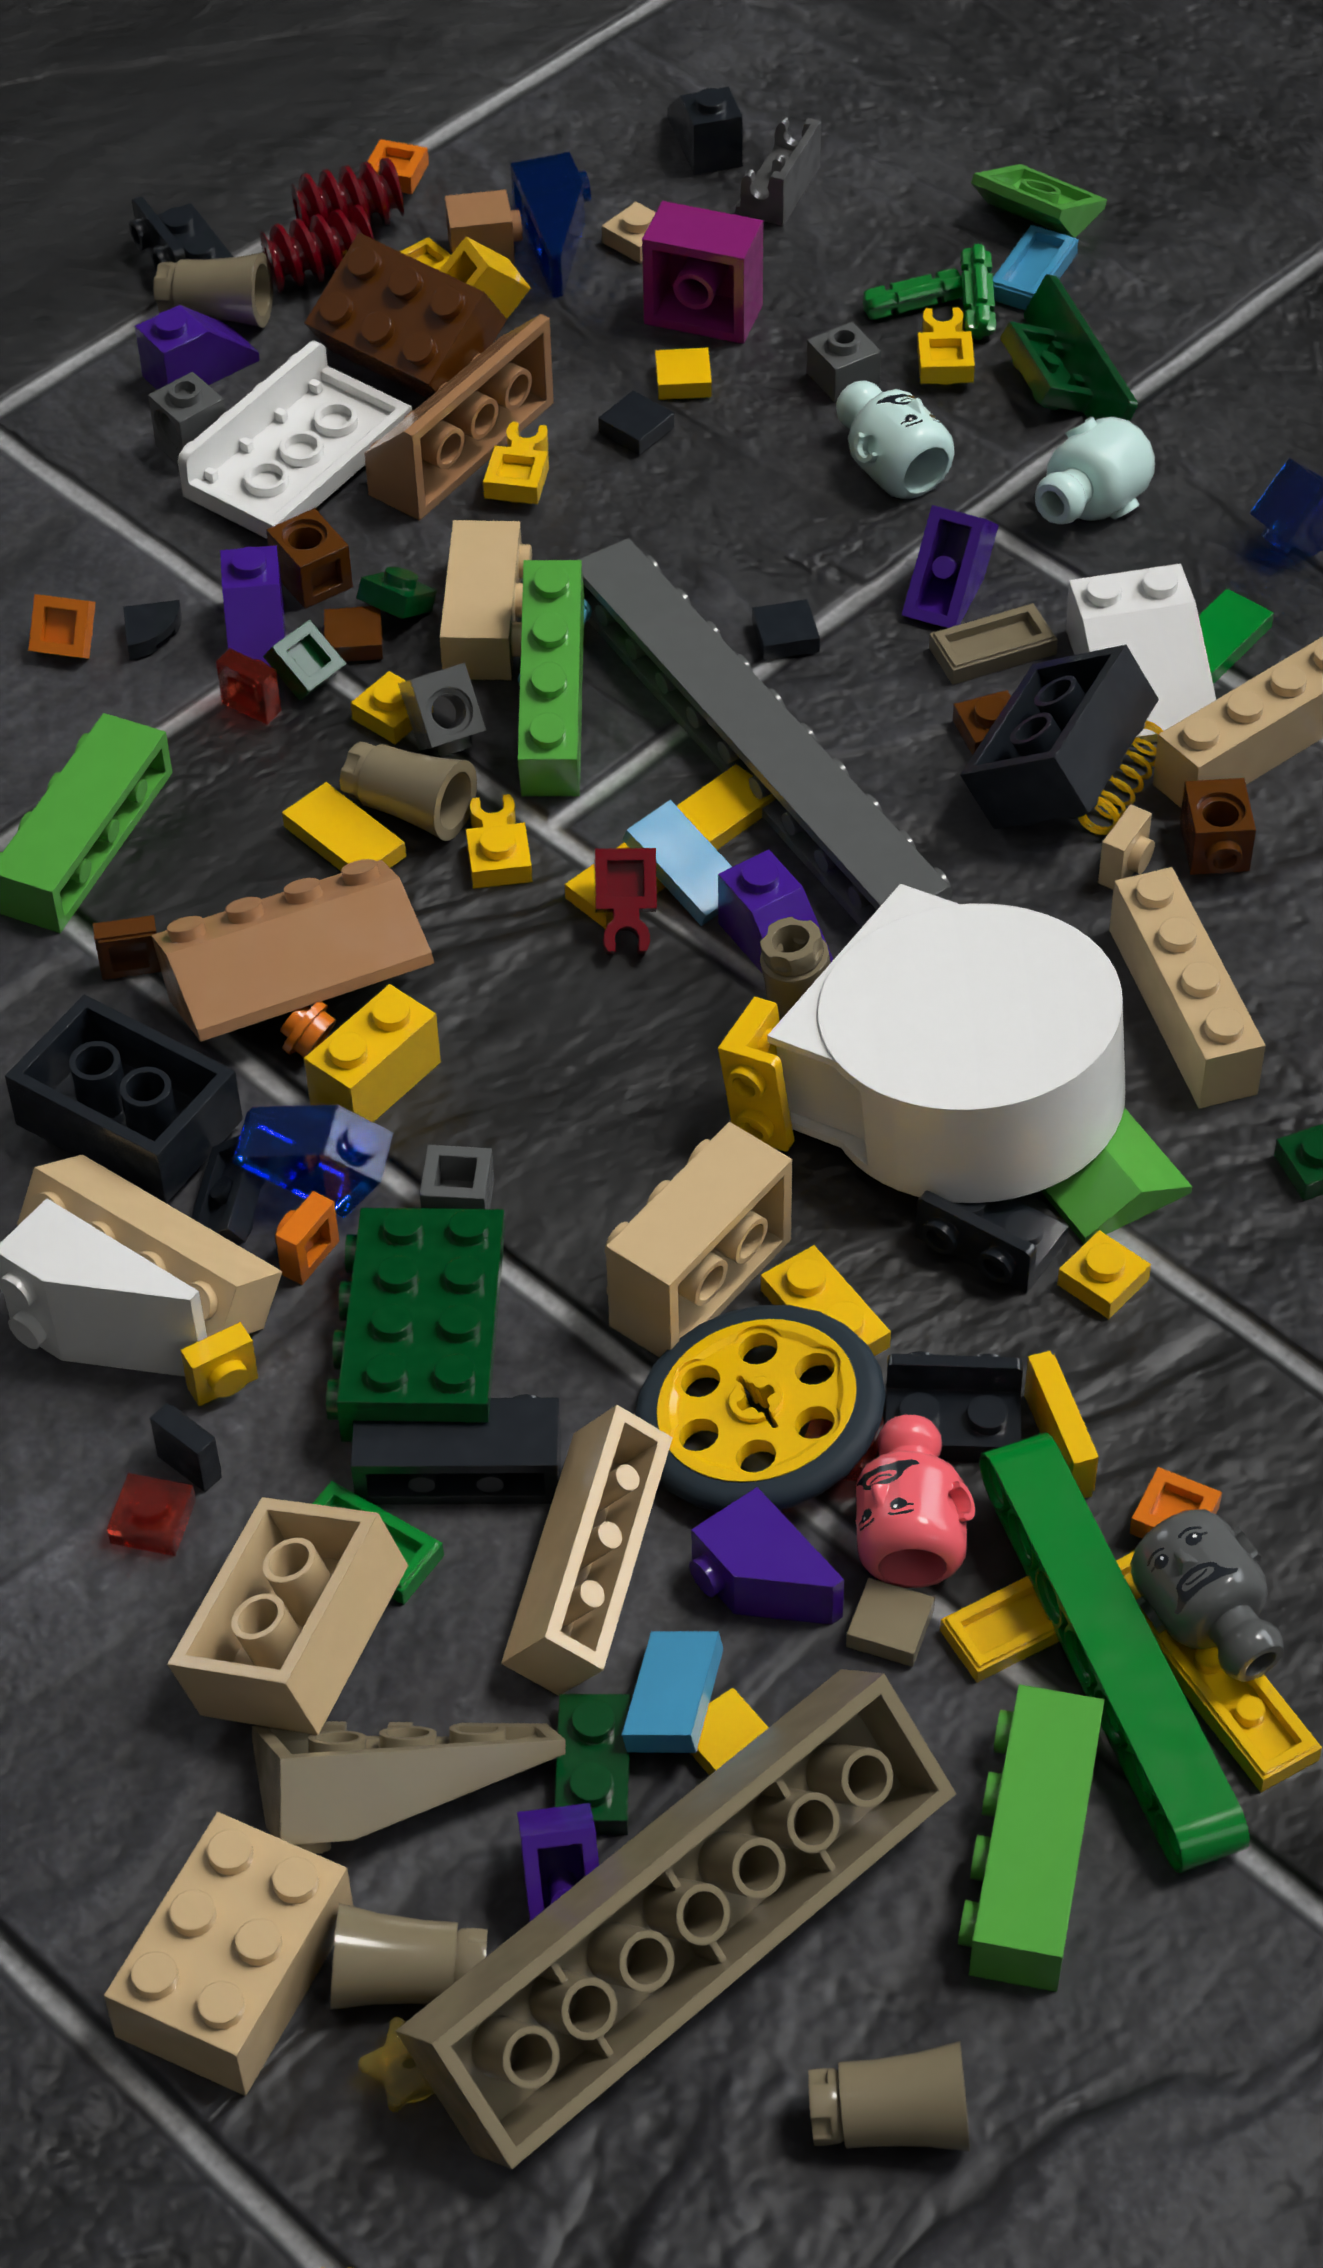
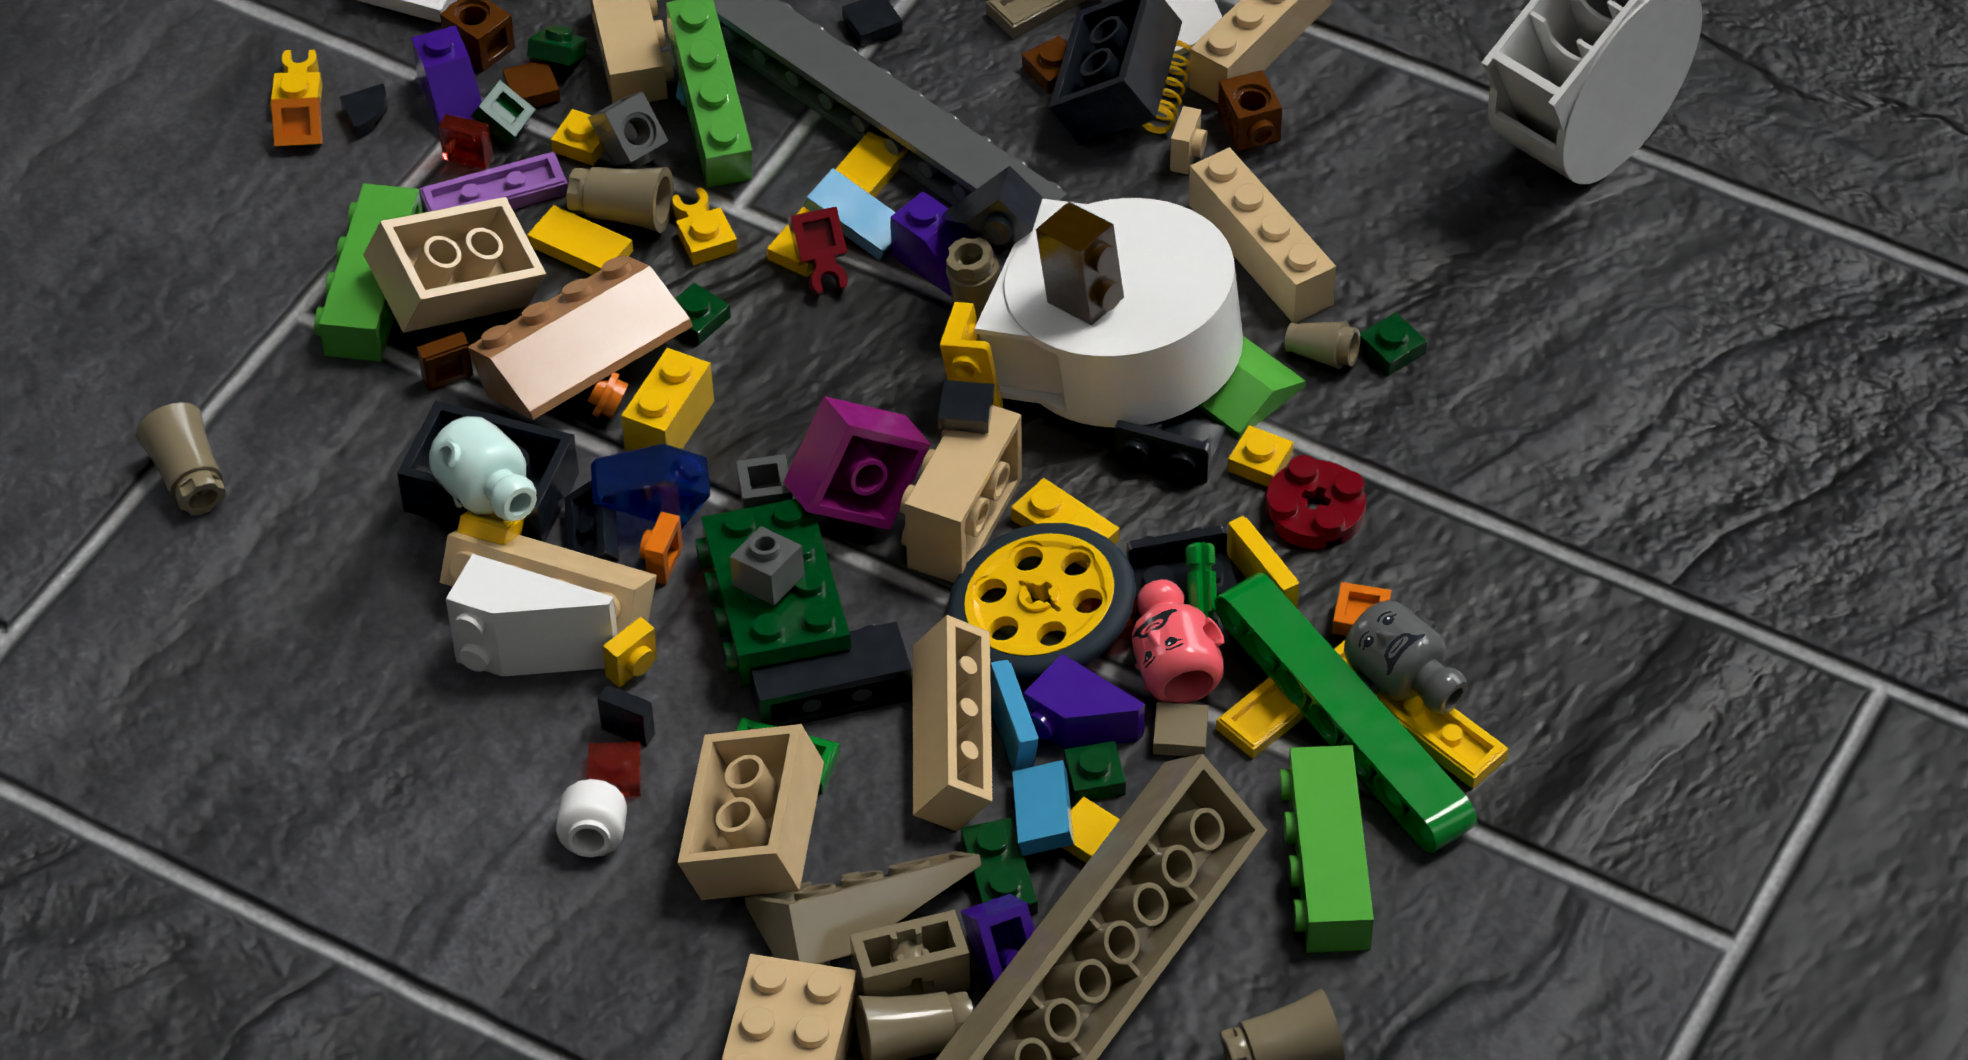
camera: 15 degrees left, 0 degrees up
(87, 580) = (298, 79): none -> yellow plate
(94, 1575) = (591, 818): none -> white head
(97, 1092) = (482, 469): none -> light aqua piece
(97, 1164) = (490, 527): none -> yellow tile
(169, 830) = (454, 264): none -> tan brick
(262, 752) = (520, 182): none -> medium lavender tile
(407, 1291) = (767, 565): none -> dark grey plate
(428, 1866) = (912, 957): none -> dark tan brick
(458, 948) = (705, 312): none -> dark green plate
(568, 1178) = (856, 463): none -> magenta brick
(672, 1556) = (1012, 716): none -> dark azure tile
(722, 1135) = (966, 406): none -> black tile
(760, 1655) = (1094, 771): none -> dark green plate
(845, 891) = (996, 211): none -> black slope
(913, 977) = (1080, 263): none -> dark brown brick
(971, 1429) = (1201, 579): none -> green axle
(1162, 1319) = (1321, 480): none -> dark red plate
(1229, 1141) = (1324, 342): none -> dark tan cone

